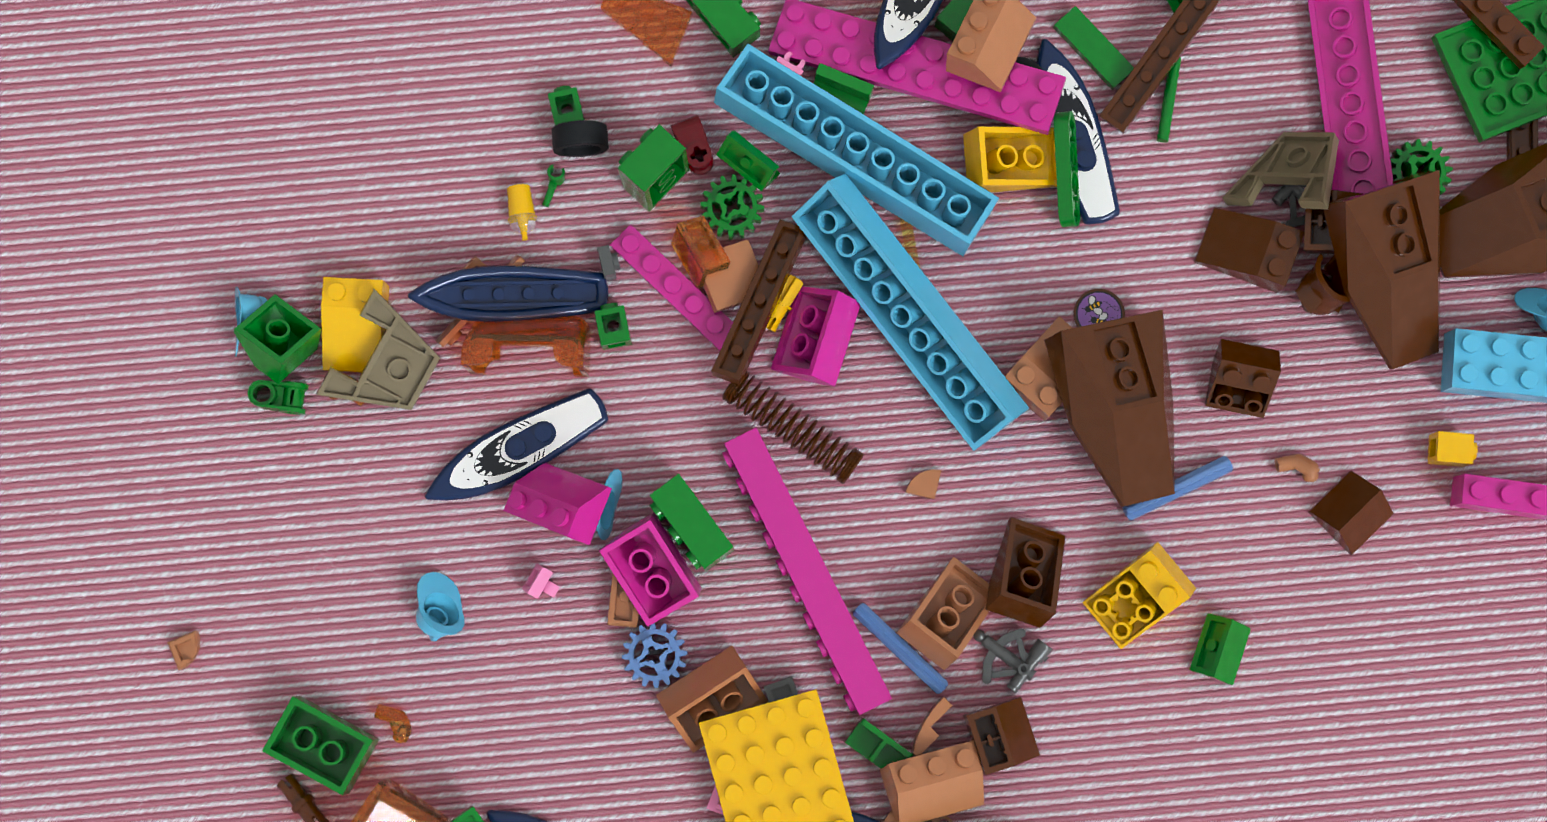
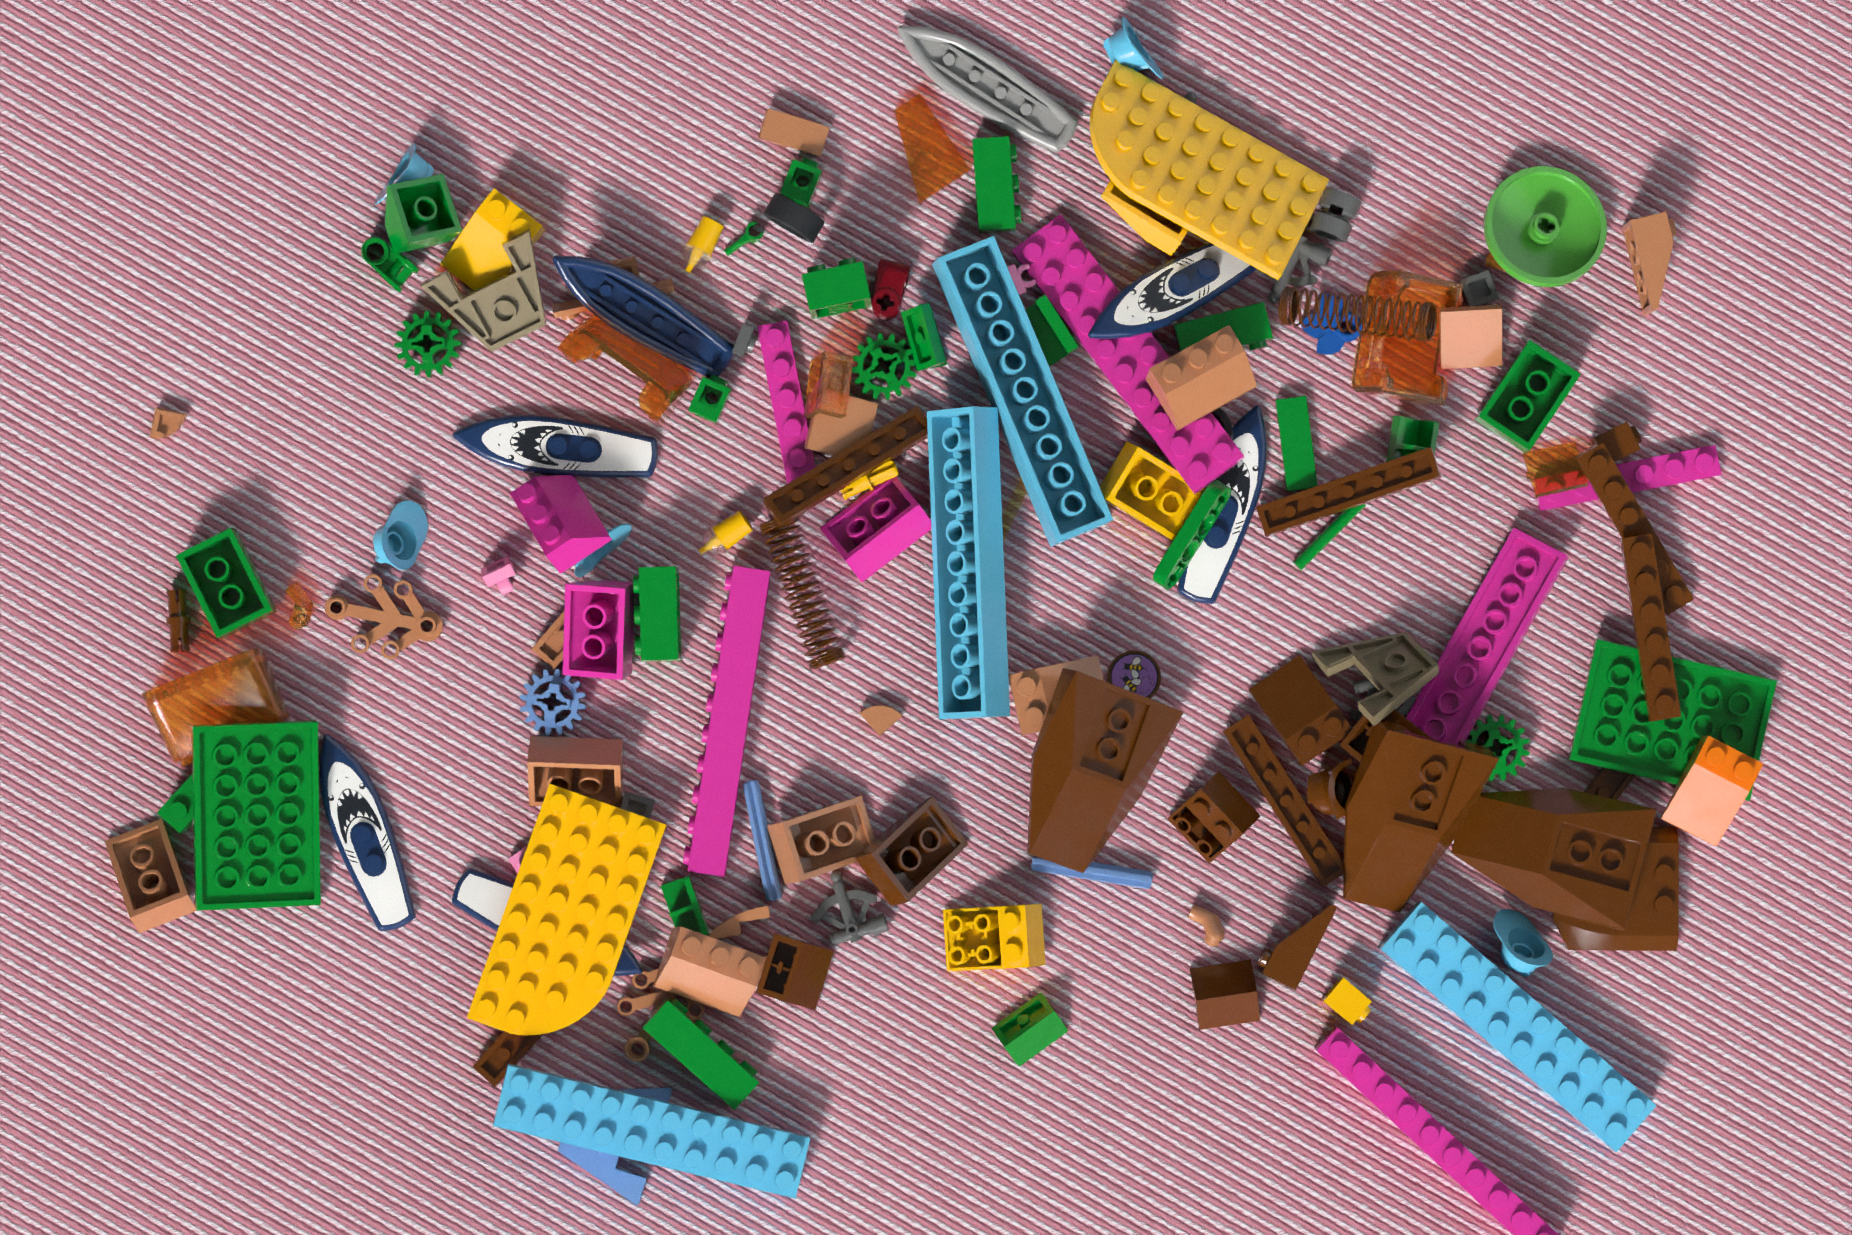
camera: 40 degrees right, 5 degrees up
(345, 445) = (429, 358): none -> green gear
(475, 680) = (389, 618): none -> nougat plant
(532, 76) = (793, 132): none -> nougat slope
(699, 424) = (725, 534): none -> yellow piece
(1288, 326) = (1285, 800): none -> reddish brown plate
(1386, 436) = (1292, 953): none -> reddish brown slope

